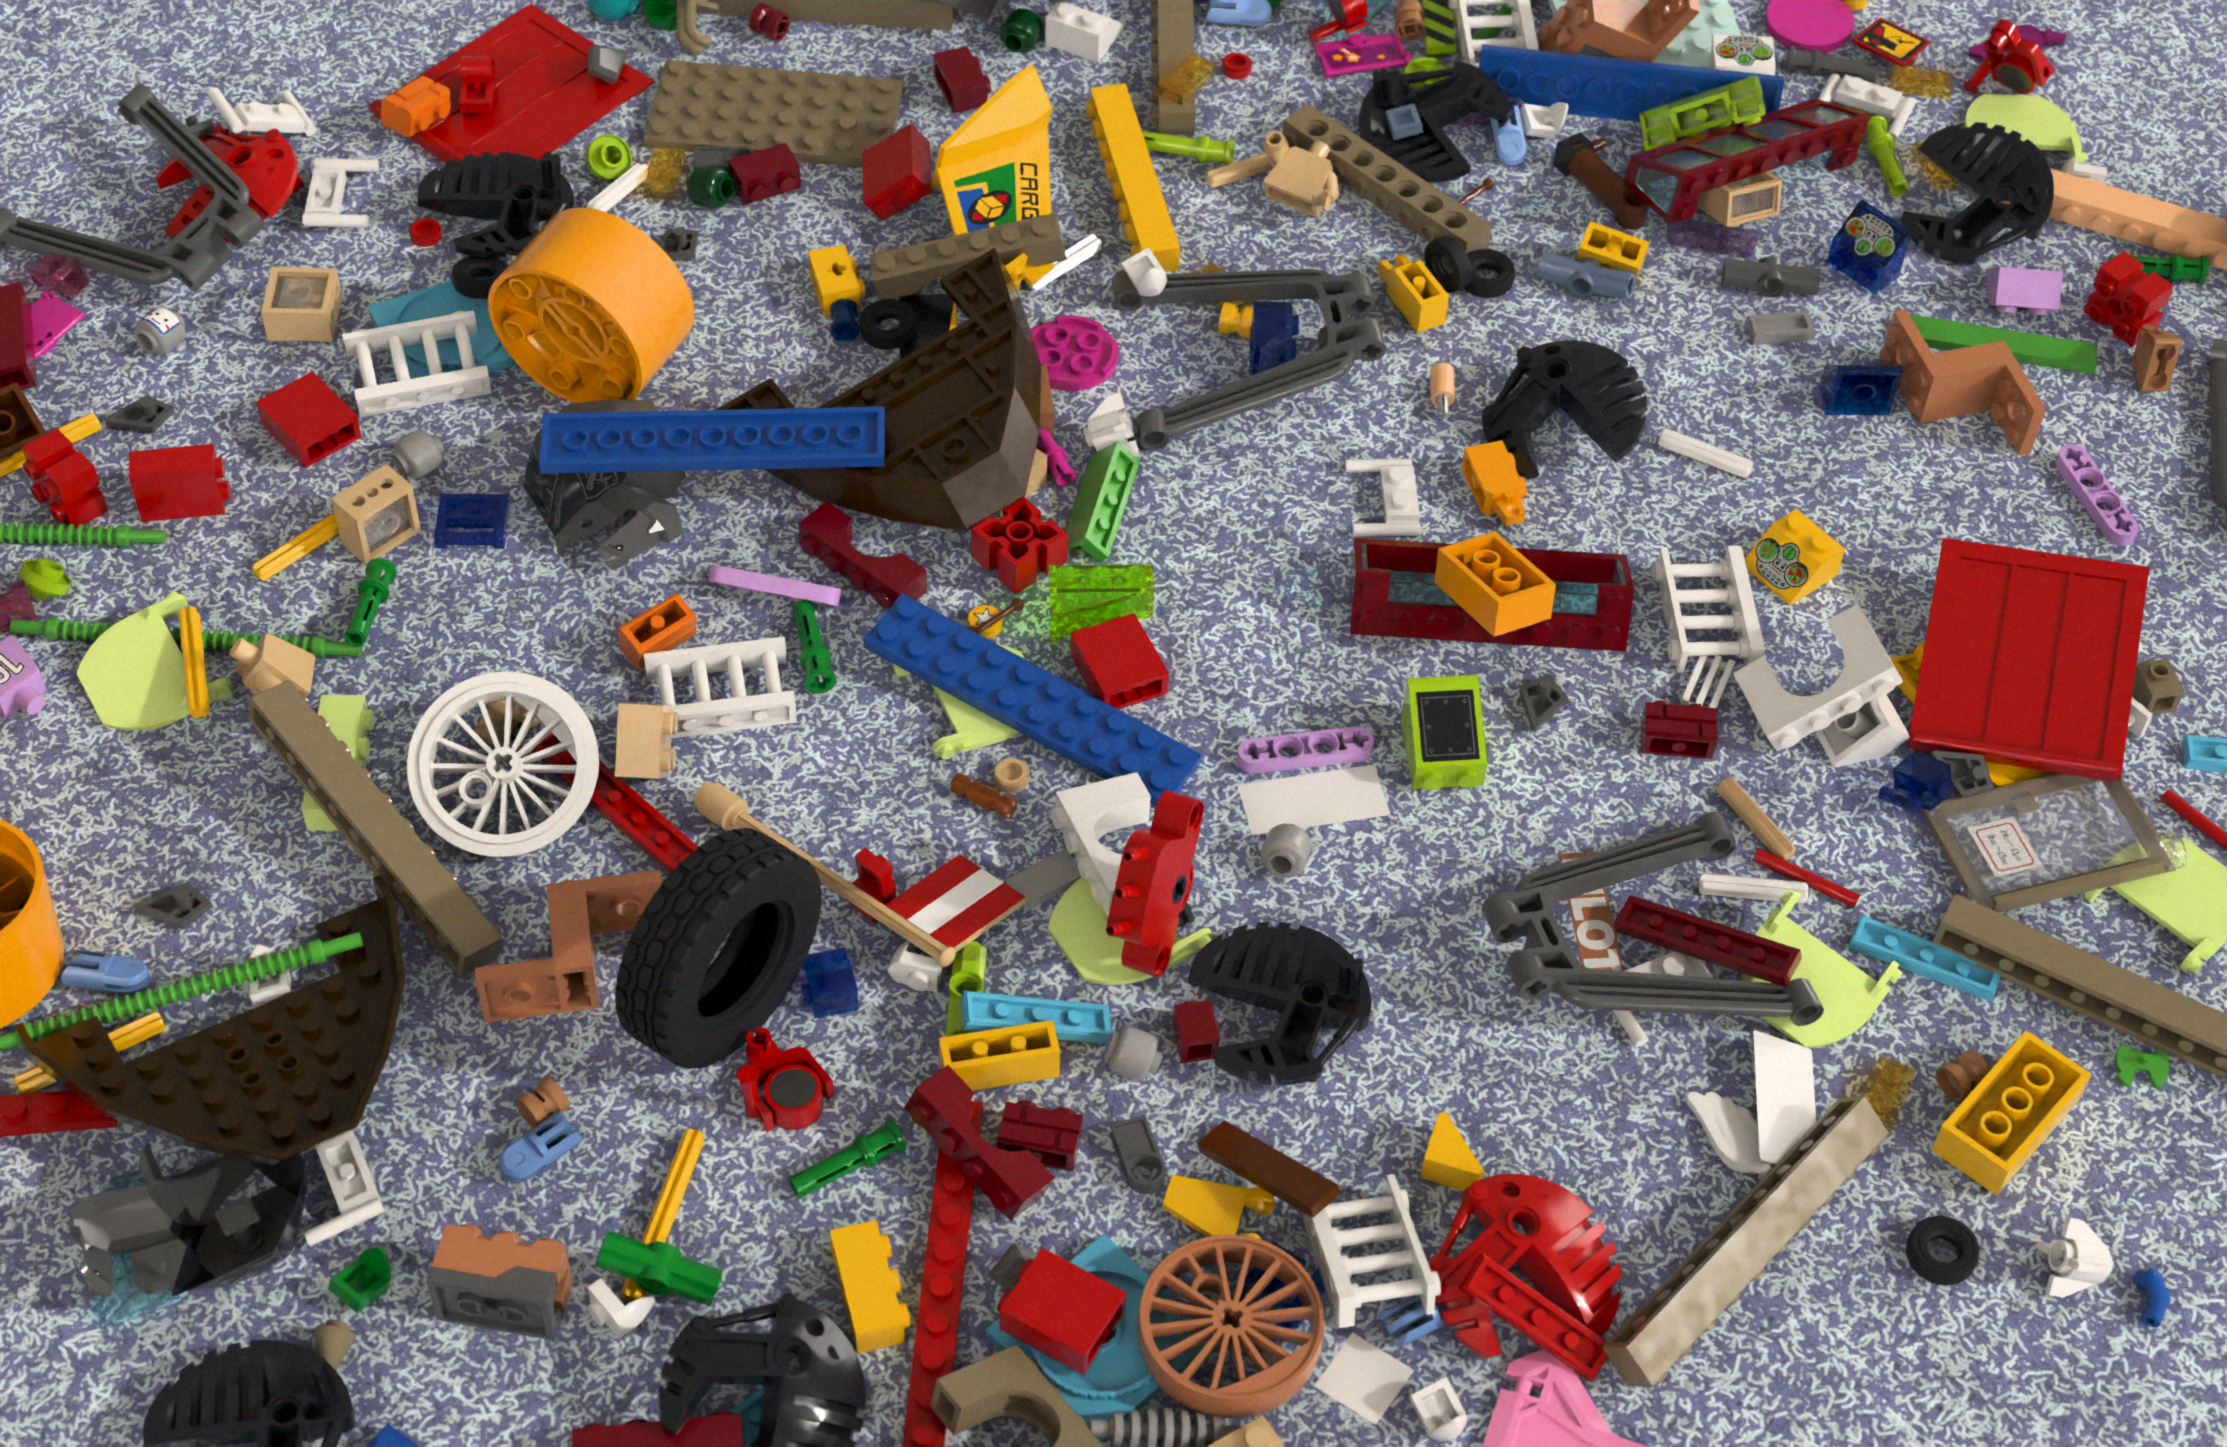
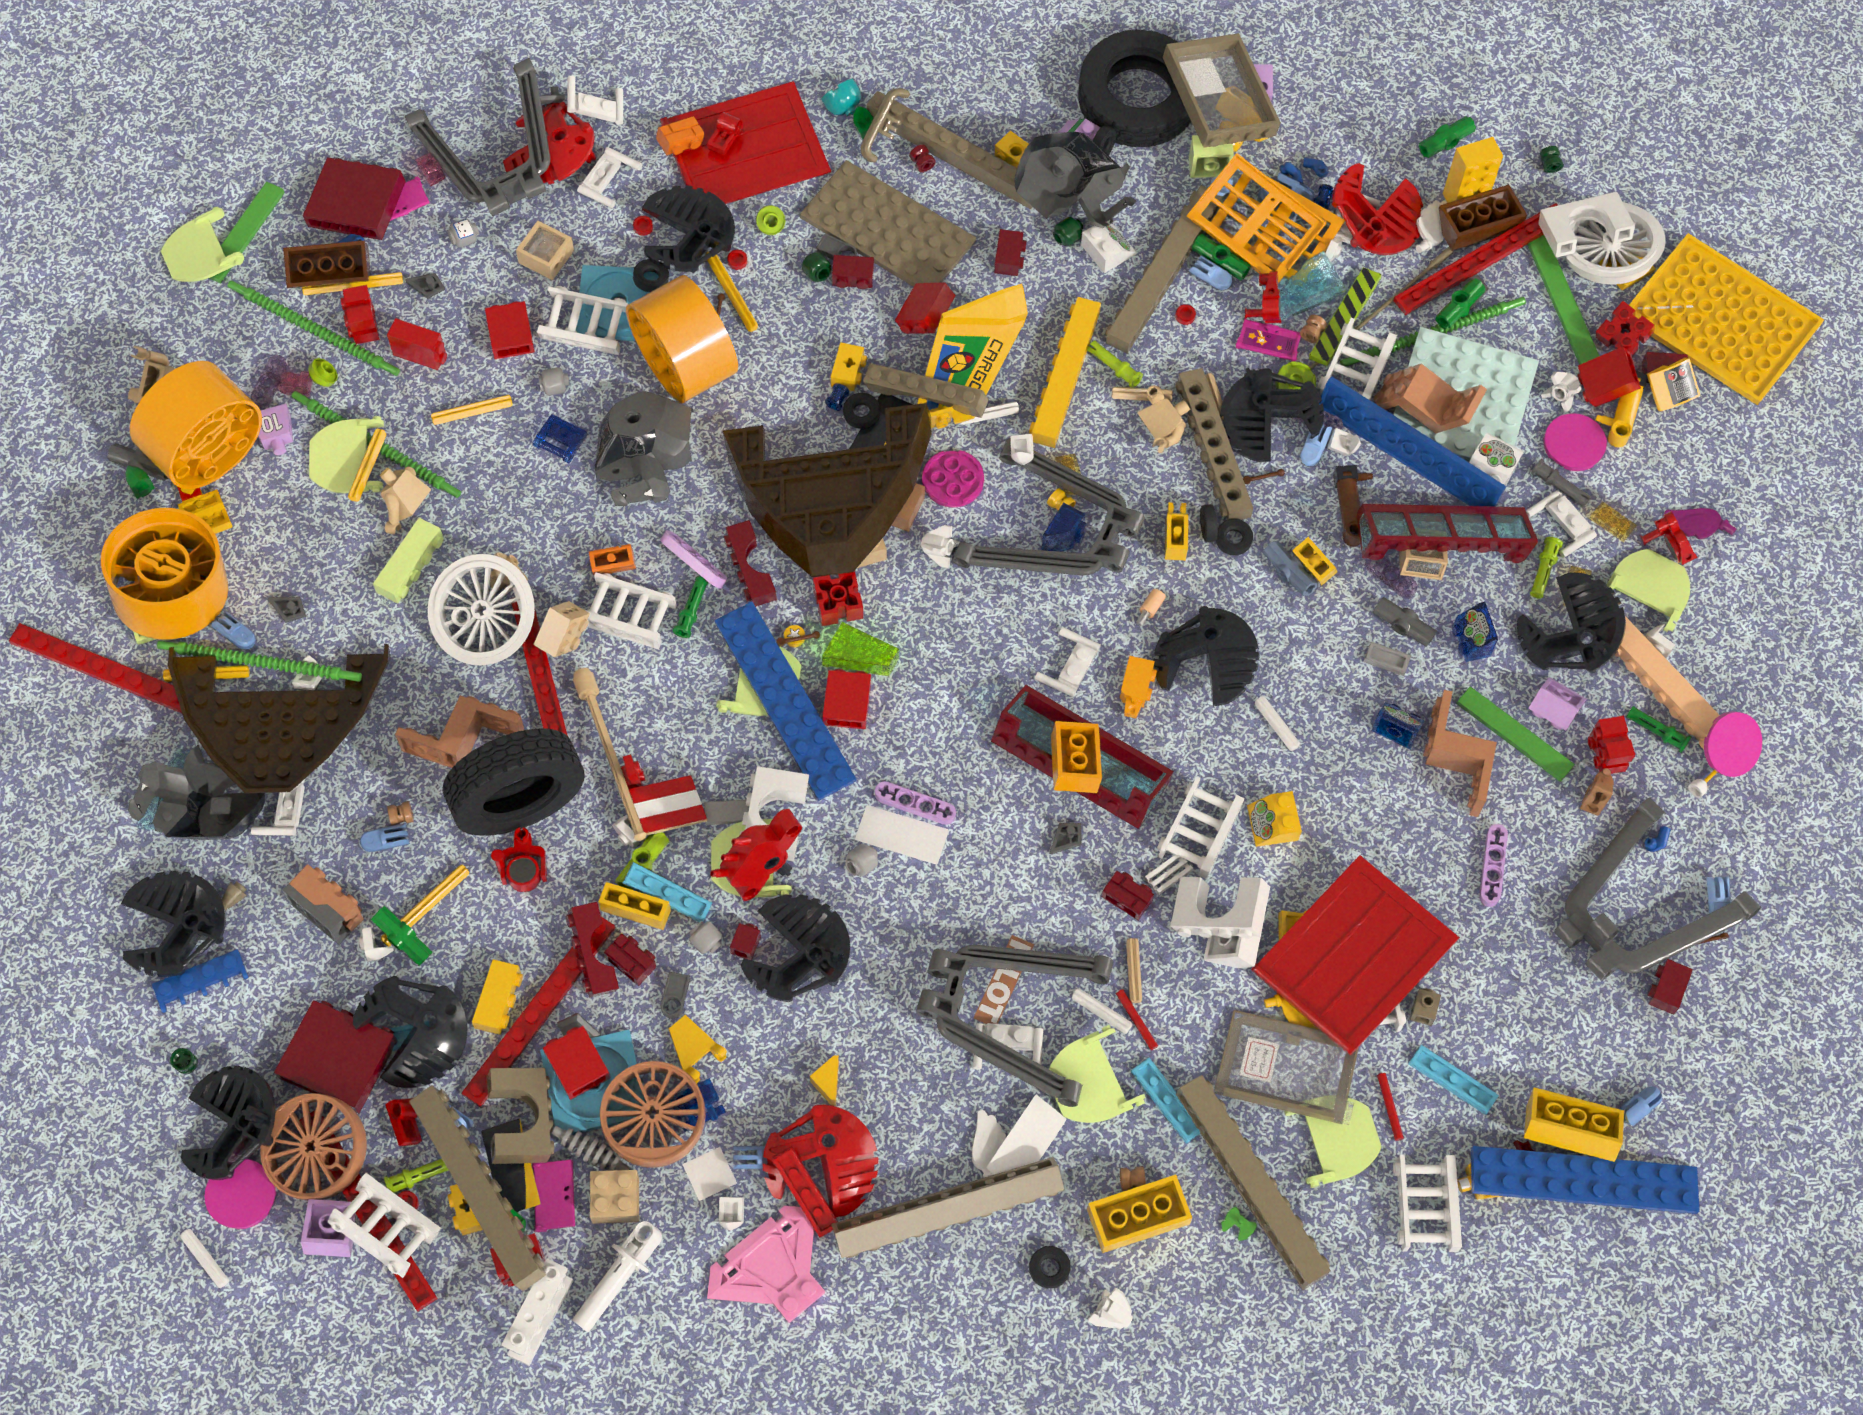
camera: 30 degrees right, 15 degrees up
(363, 1279) = (264, 867): green plate -> none
(372, 592) = (482, 462): green pin -> none
(375, 828) = (400, 615): dark tan brick -> none
(376, 514) = (507, 414): tan piece -> none
(606, 62) = (808, 149): dark grey piece -> none
(620, 188) = (763, 245): white axle -> none
(664, 173) = (797, 244): clear yellow plate -> none
(679, 243) = (774, 299): dark grey piece -> none
(712, 440) = (700, 458): blue plate -> none
(829, 983) = (579, 819): clear blue brick -> none
(863, 1152) = (540, 922): green pin -> none
(983, 795) = (726, 744): dark orange axle -> none
(1011, 775) = (749, 739): tan tile -> none
(1055, 459) = (897, 546): dark pink pin -> none
(1101, 500) = (905, 589): bright green panel -> none
(1186, 78) = (1137, 317): clear yellow plate -> none
(1268, 1168) = (728, 1039): reddish brown tile -> none
(1337, 1269) = (732, 1095): white fence -> none
(1403, 121) = (1250, 408): sand blue tile -> none
(1444, 732) = (991, 834): slope -> none
(1708, 941) = (1046, 1031): dark red plate -> none
(1713, 108) = (1455, 489): lime bracket -> none
(1888, 1089) = (1084, 1166): clear yellow plate -> none
(1891, 42) = (1612, 484): piece -> none
(1919, 783) = (1239, 997): clear blue brick -> none
(1968, 772) = (1268, 1004): dark grey piece -> none
(2157, 1293) = (1145, 1351): blue arm -> none

